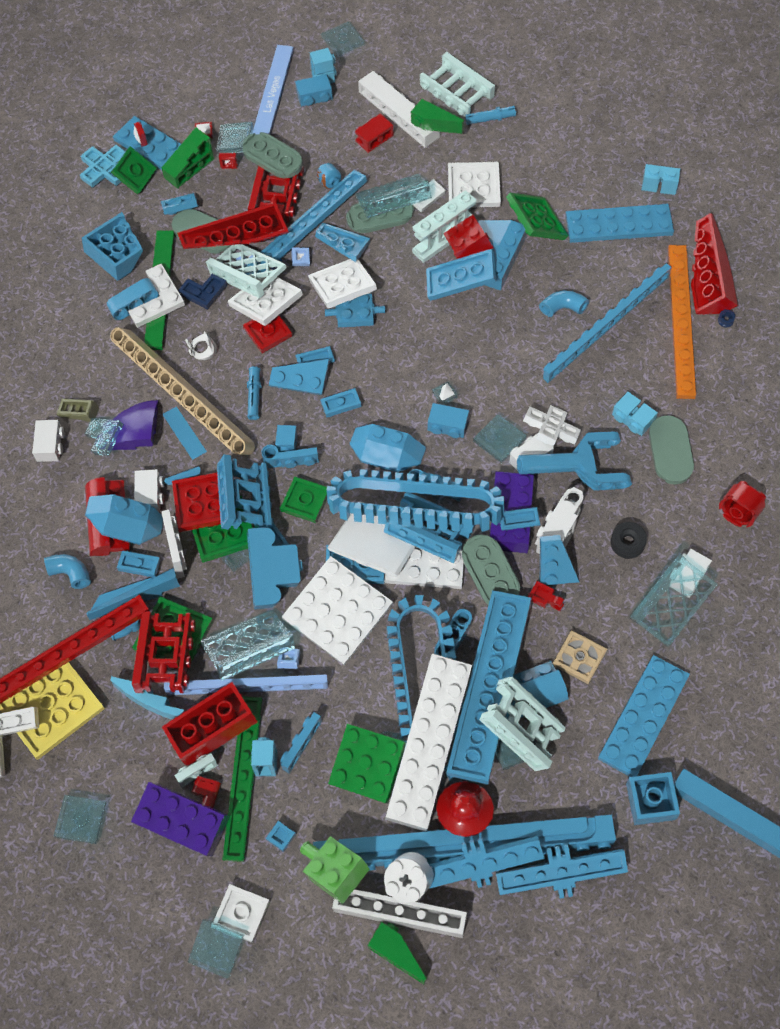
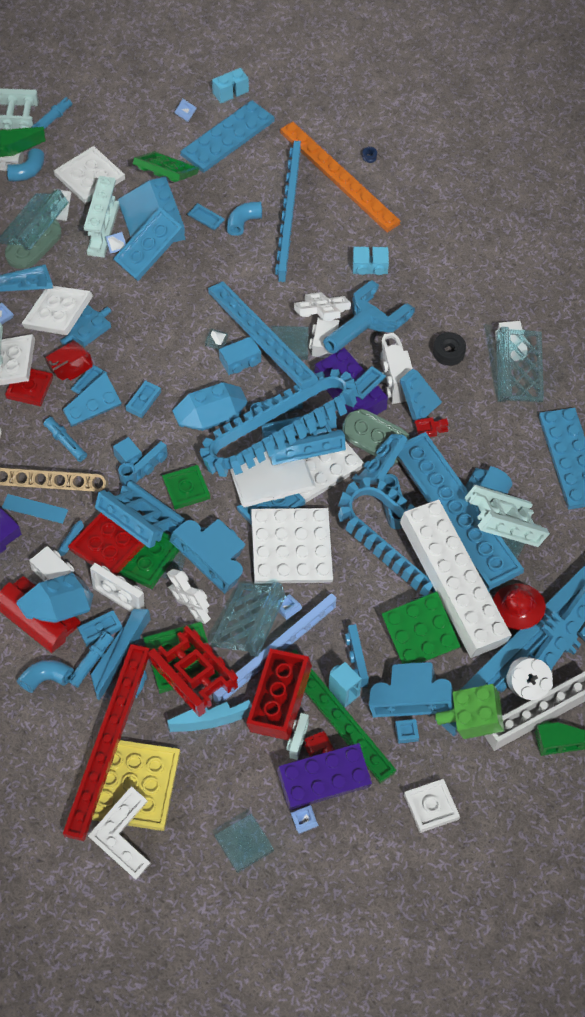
camera: 45 degrees left, 5 degrees down
(114, 581) = (96, 651): none -> dark azure pin
(139, 839) = (304, 819): none -> light blue tile
(215, 590) = (191, 597): none -> white plate
(216, 948) = (439, 843): clear light blue tile -> none
(310, 807) = (411, 692): none -> dark azure brick
(317, 331) = (78, 359): none -> red piece
(430, 149) = (29, 168): none -> dark azure cylinder
(440, 255) = (115, 242): none -> tile
(466, 597) = (385, 459): none -> dark azure wing
(467, 238) = (129, 214): red brick -> none
(474, 417) = (263, 336): none -> dark azure plate
(534, 282) = (206, 217): none -> dark azure tile
(579, 657) = (492, 450): tan piece -> none
(603, 177) = (185, 110): none -> light blue tile
(671, 449) = (418, 269): sand green tile -> none
(713, 280) = (330, 130): red wedge -> none
(742, 504) = (504, 270): red brick -> none

